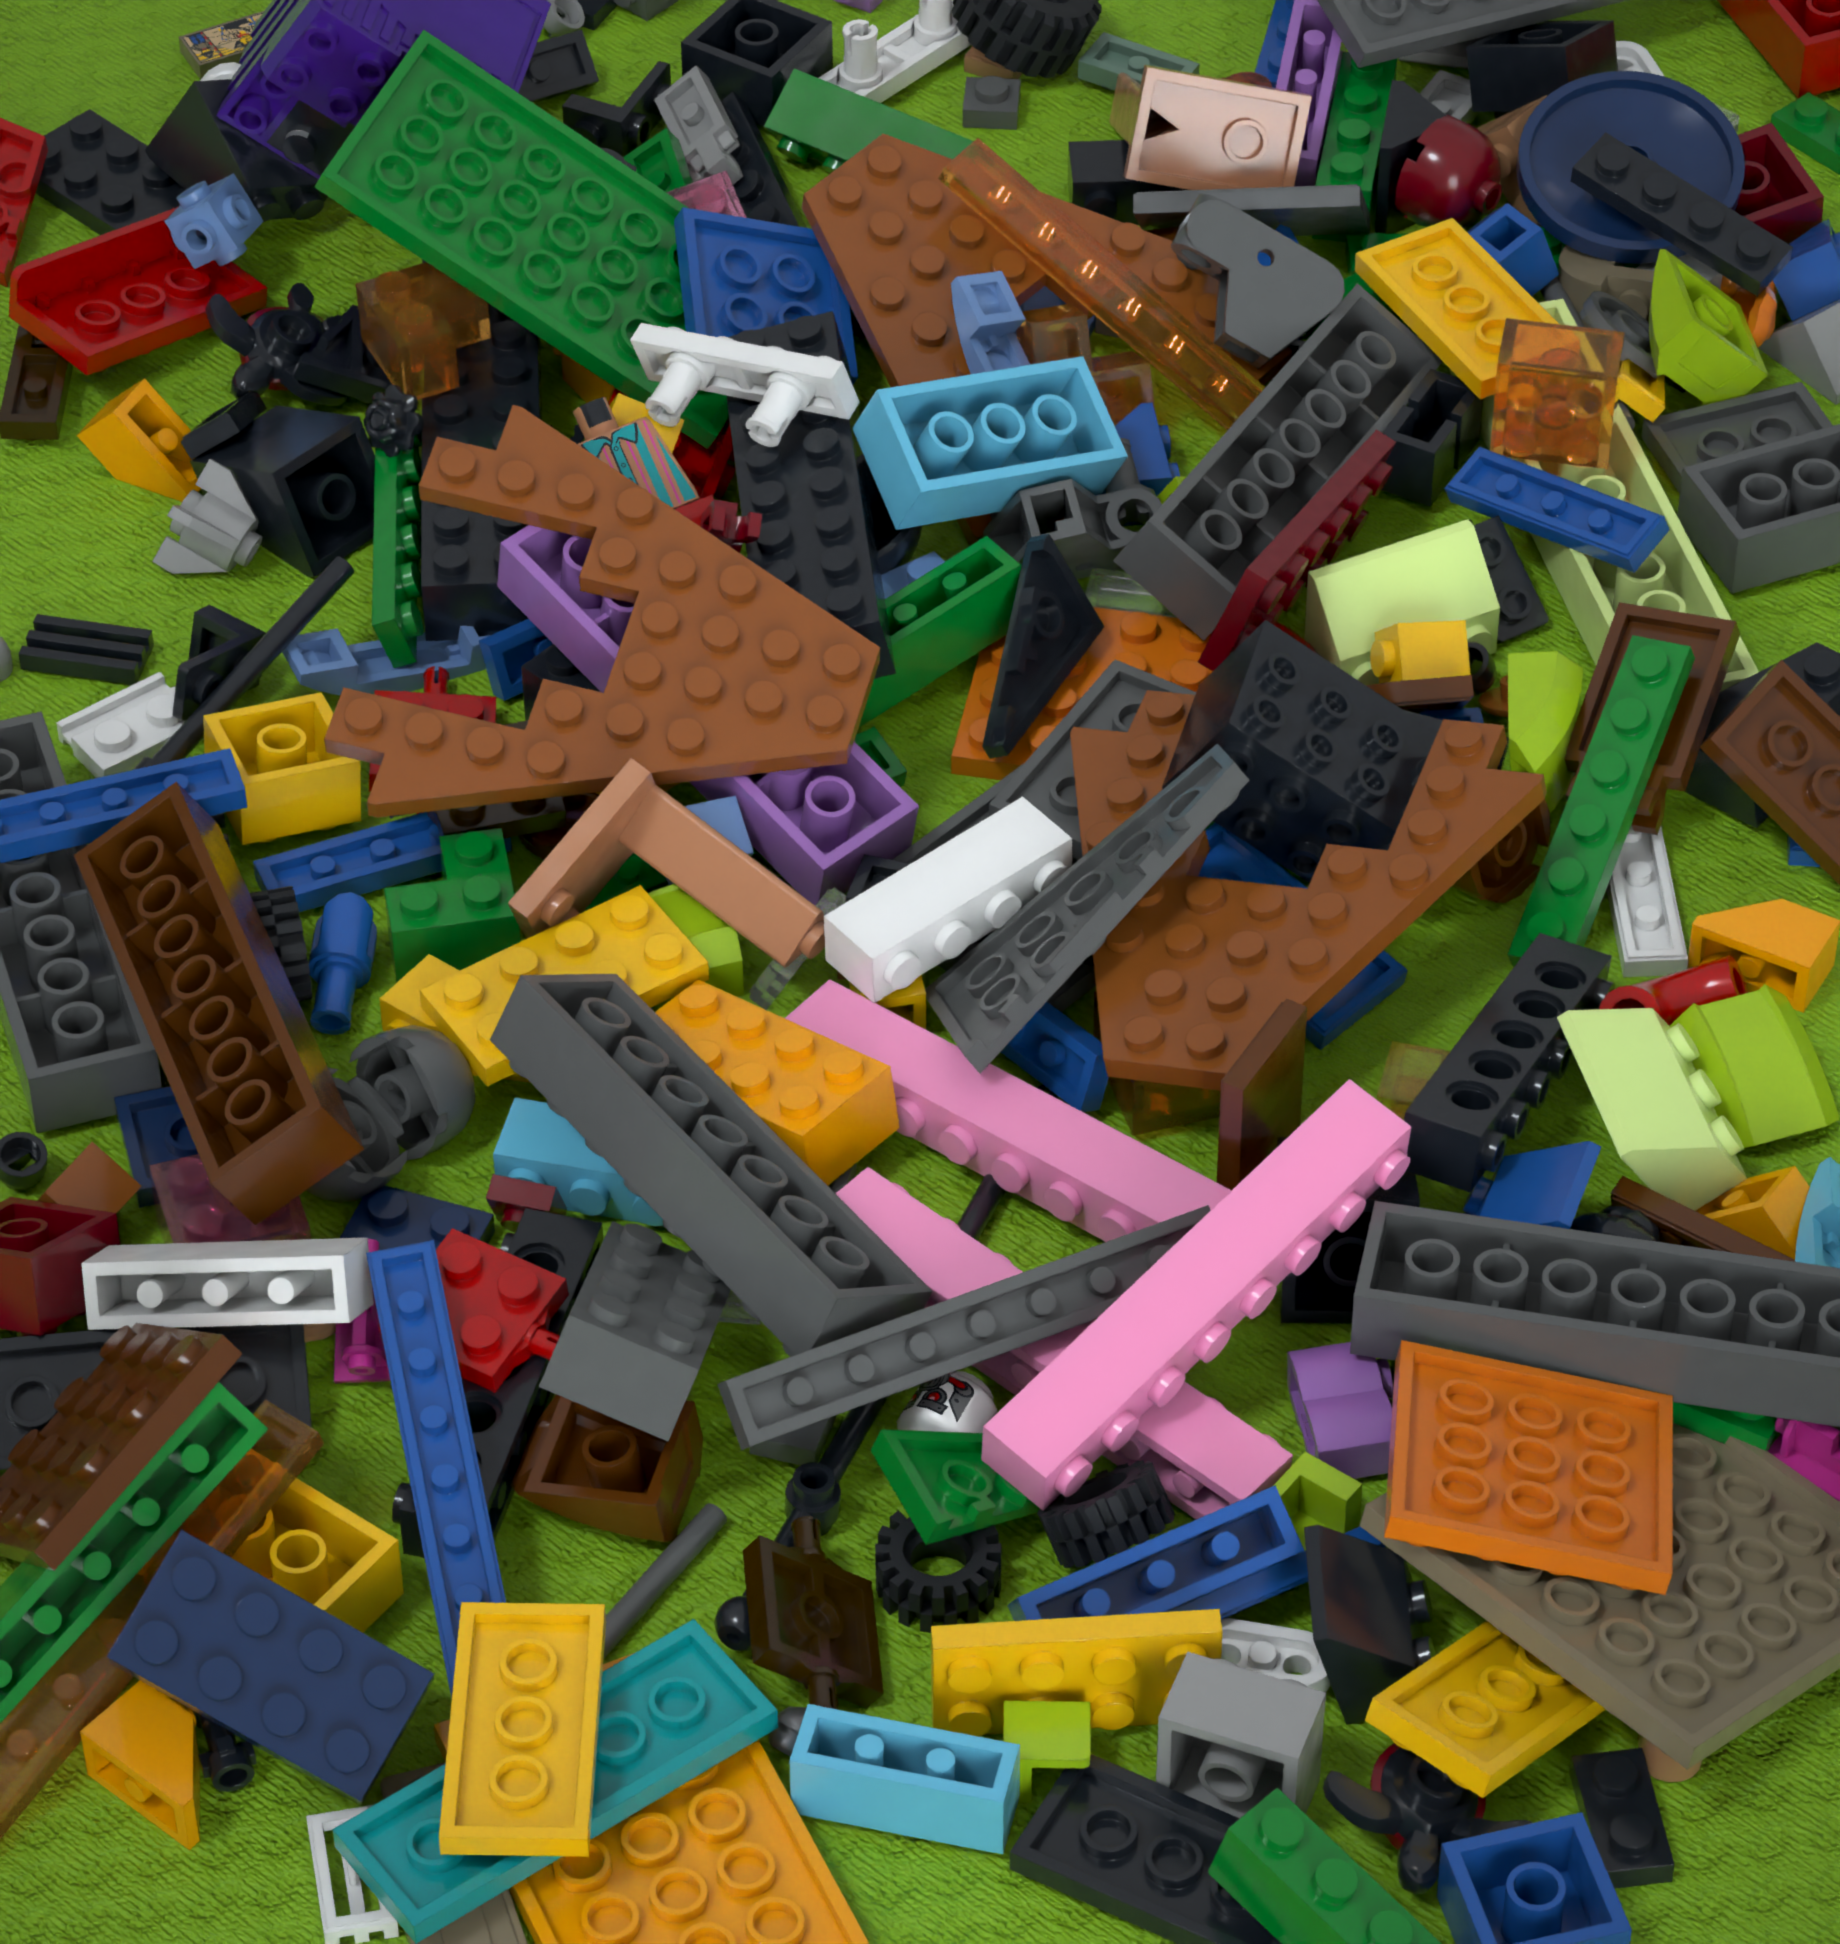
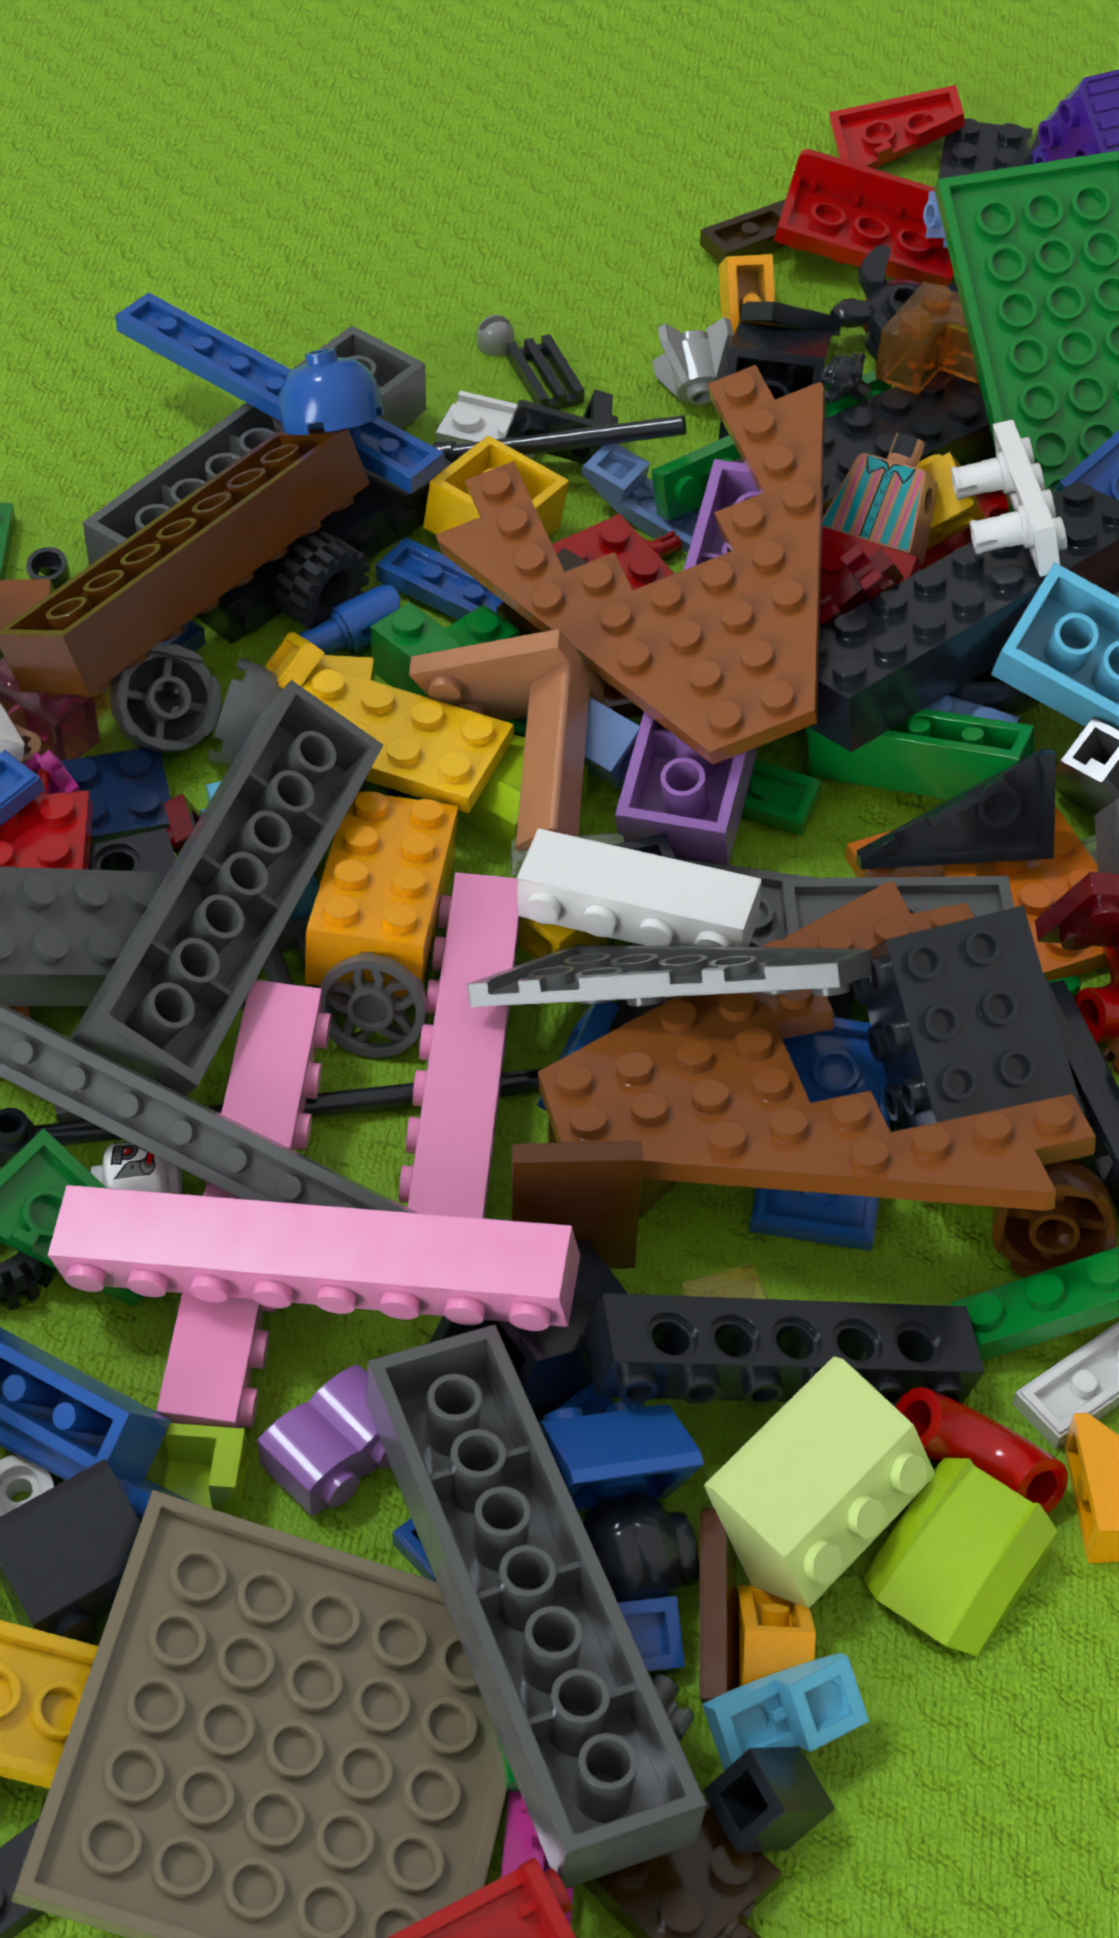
camera: 55 degrees right, 5 degrees up
(112, 775) = (328, 394): none -> blue cylinder
(382, 1006) = (294, 659): none -> yellow tile
(889, 1149) = (374, 1005): none -> dark grey wheel
(1107, 1514) = (93, 1328): black tyre -> none
(1531, 1468) = (285, 1599): orange plate -> none

